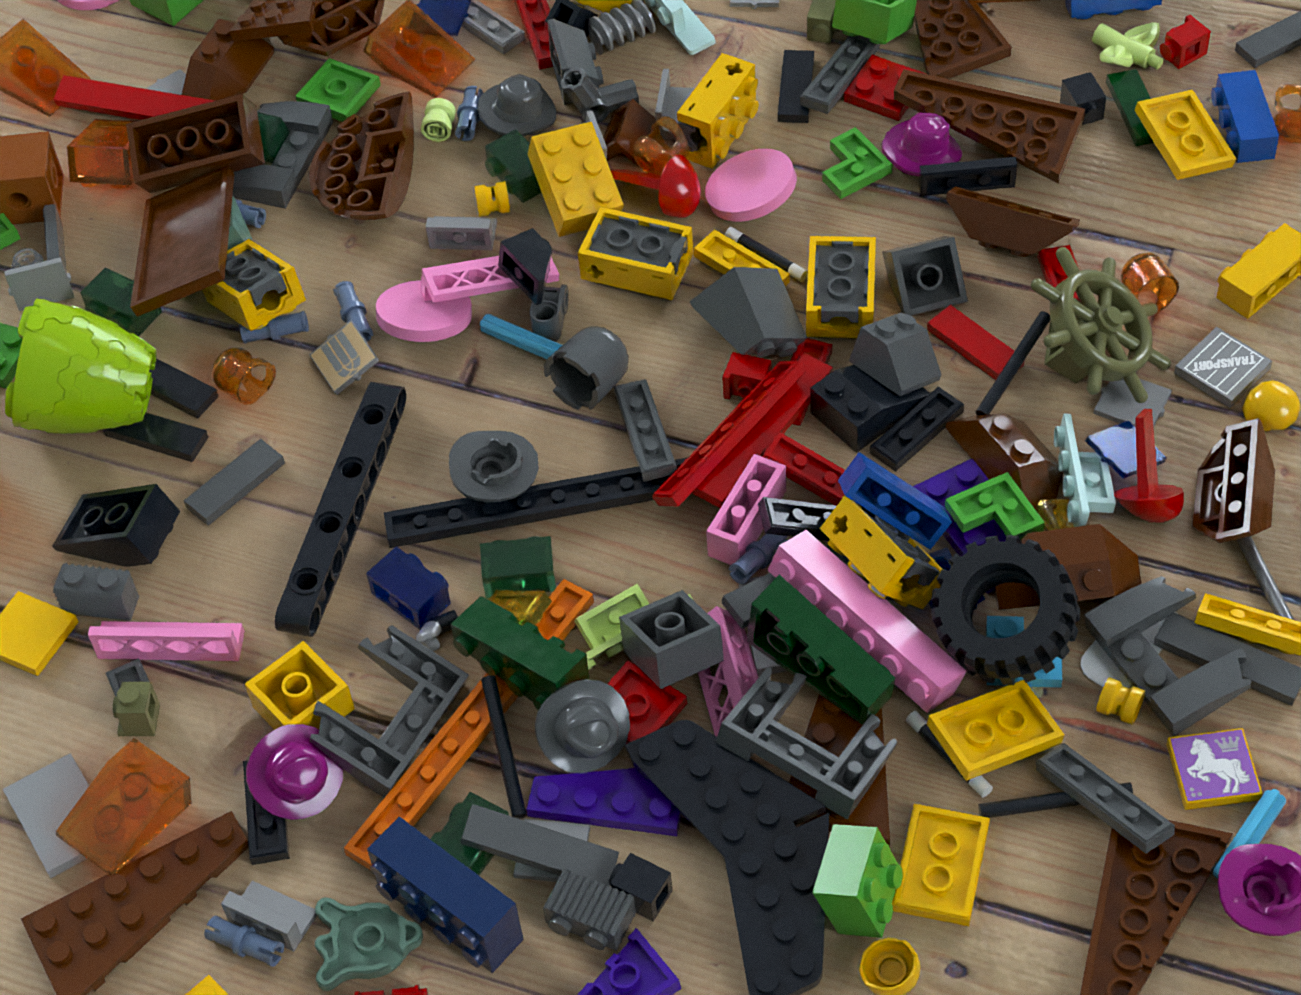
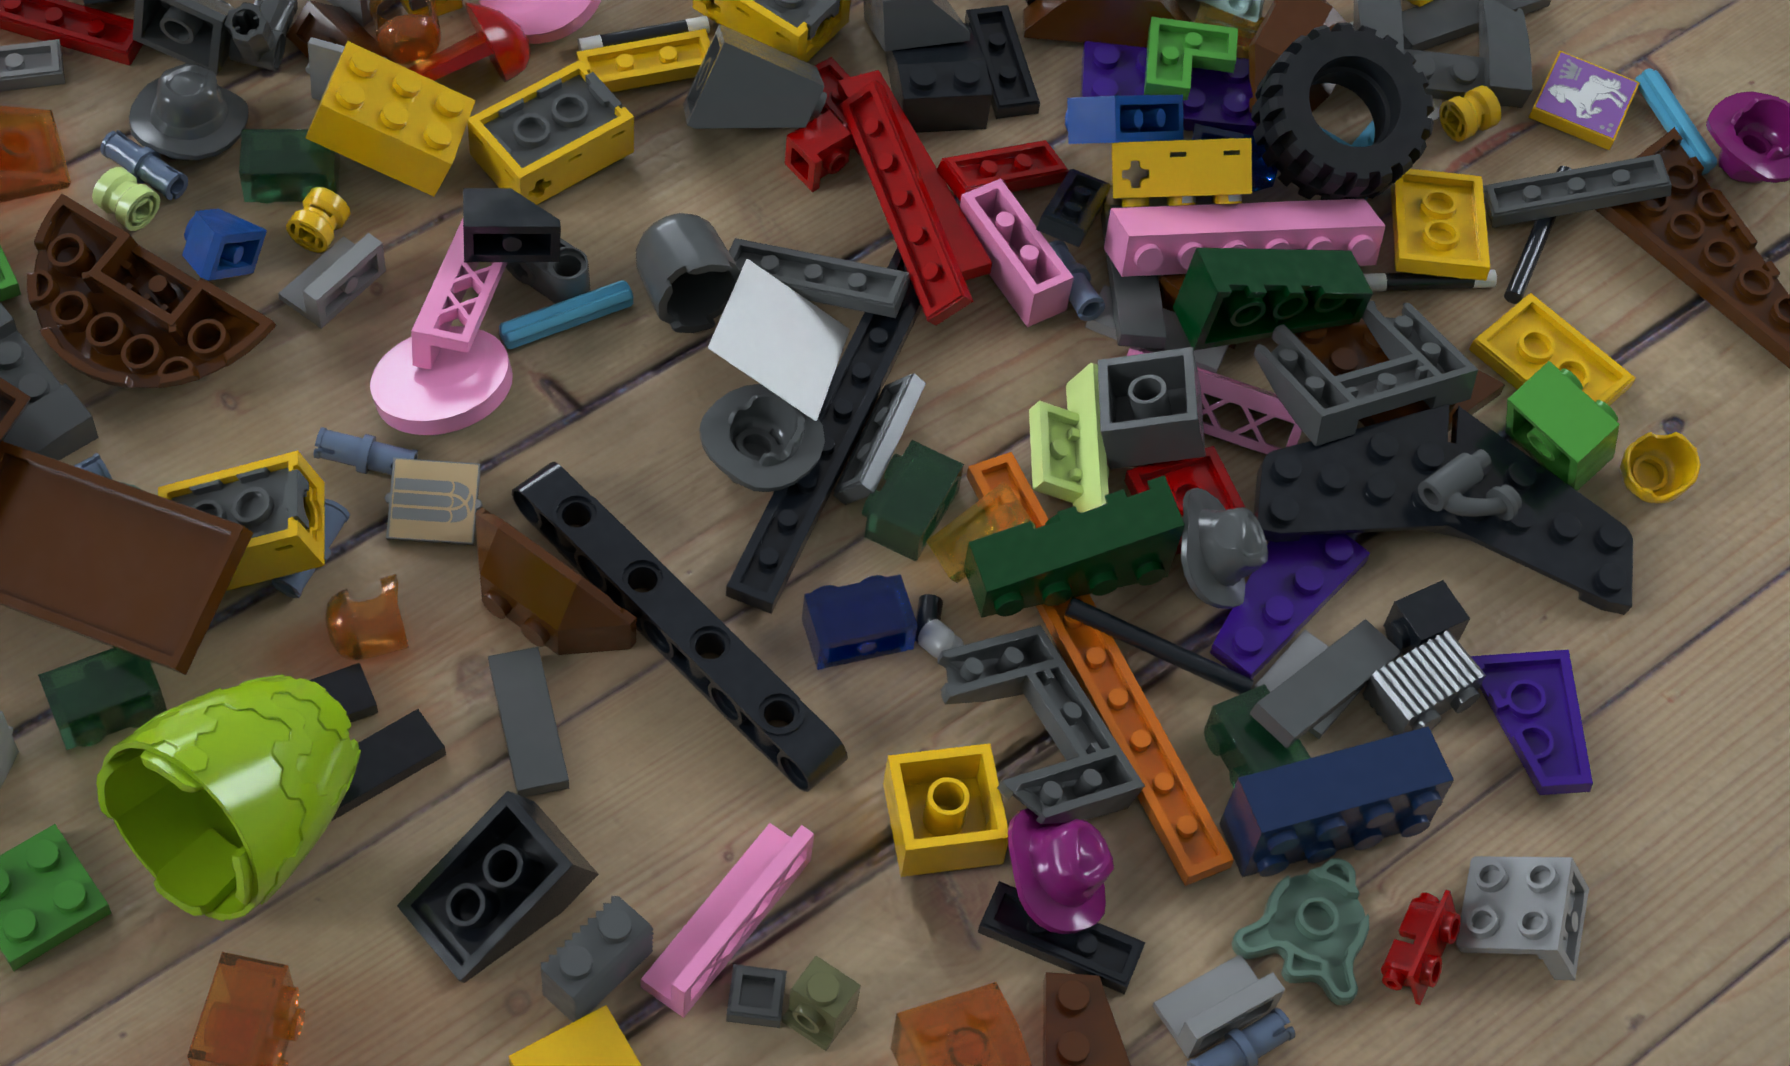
camera: 70 degrees left, 5 degrees up
(317, 430) = (545, 595): none -> reddish brown wedge
(431, 170) = (222, 244): none -> blue slope
(550, 525) = (879, 439): none -> dark grey tile
(565, 431) = (779, 339): none -> white sticker
(752, 833) = (1459, 475): none -> dark grey plant

